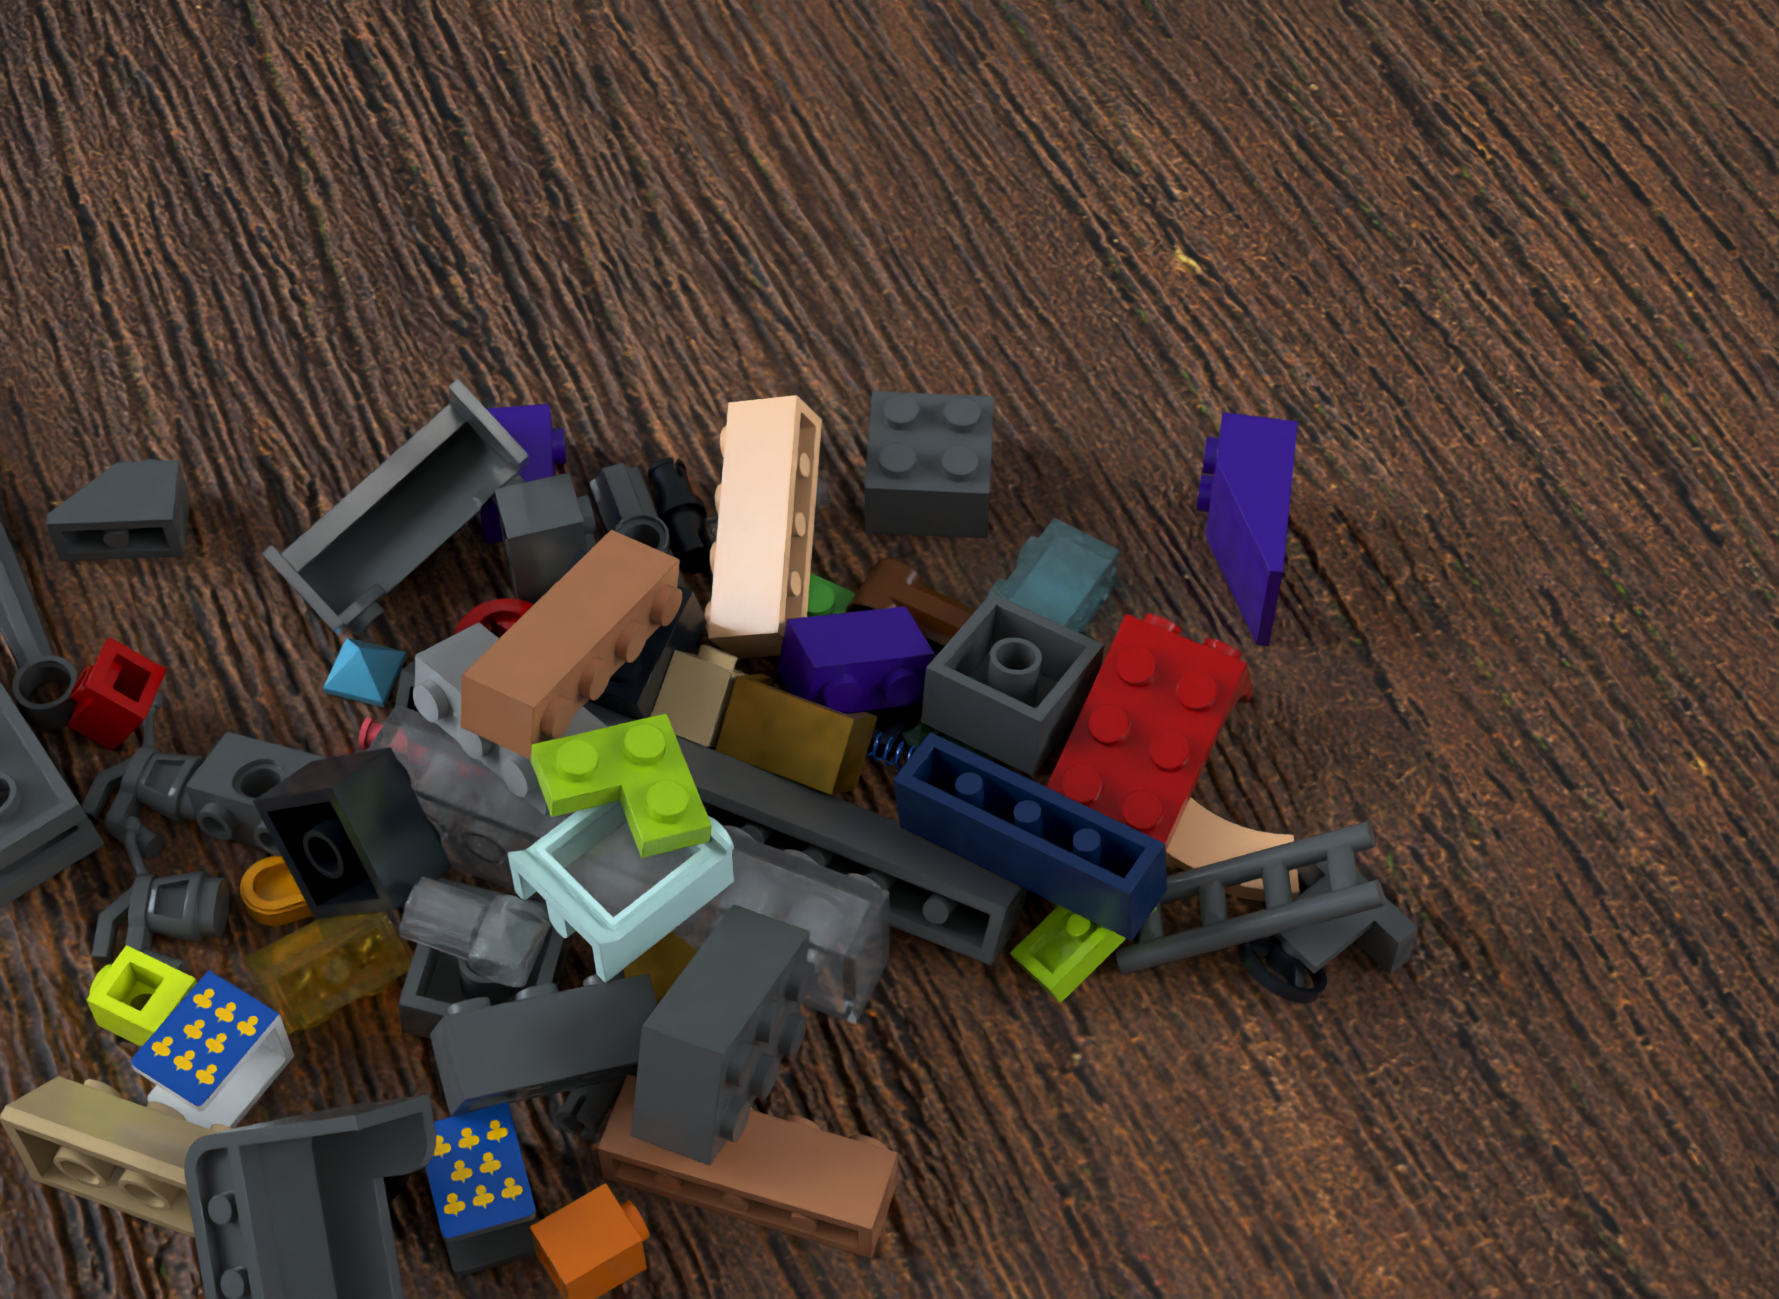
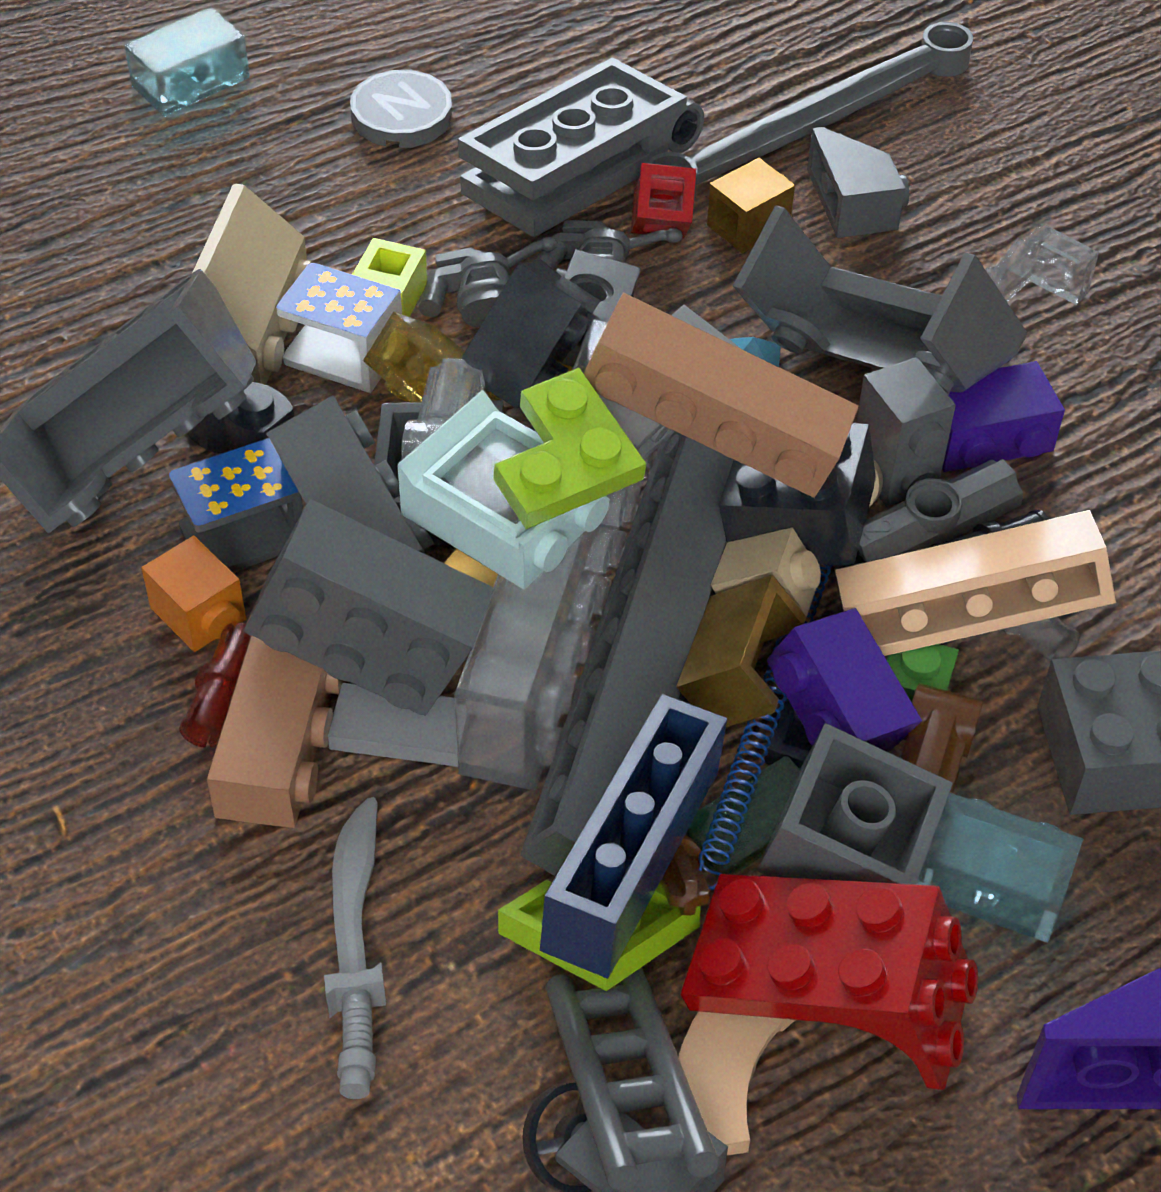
camera: 80 degrees right, 5 degrees down
(130, 611) = (745, 201): none -> pearl gold brick
(307, 371) = (1048, 261): none -> clear bracket
(717, 1229) = (215, 688): none -> clear red pin
(805, 1075) = (375, 727): none -> light grey tile
(972, 1129) = (354, 987): none -> light grey sword

